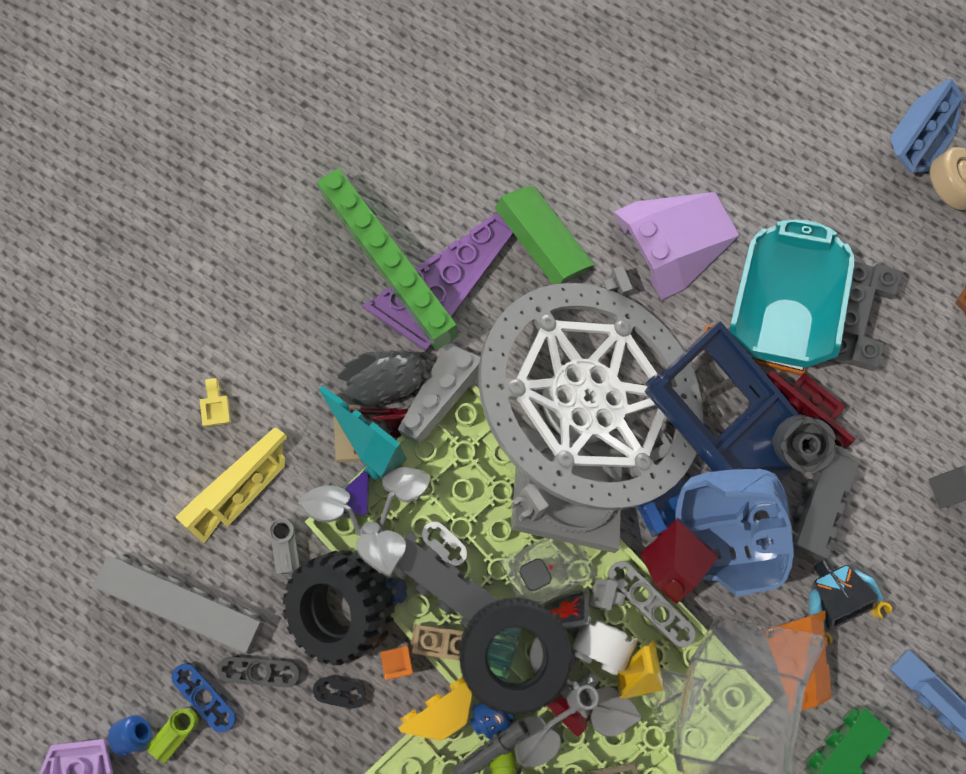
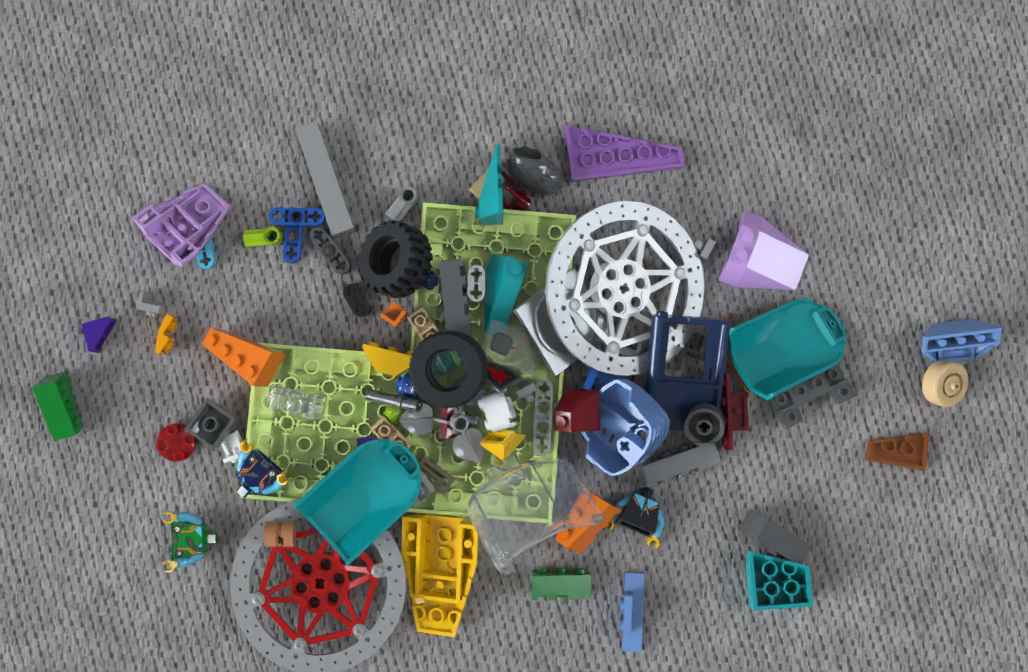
camera: 55 degrees right, 10 degrees up
(129, 736) = (242, 217): blue head -> none
(176, 673) = (283, 221): none -> blue beam
(214, 408) = (440, 101): light yellow plate -> none
(235, 487) = (409, 151): light yellow wedge -> none
(359, 496) = (455, 215): dark purple slope -> none
(375, 546) = (439, 249): light grey plant -> none
(388, 259) = (601, 113): bright green brick -> none
(446, 384) = (559, 208): light grey wing -> none
(474, 520) = (502, 286): none -> teal wedge
(532, 503) = (535, 307): light grey tile -> none
(543, 235) = (694, 184): bright green slope -> none

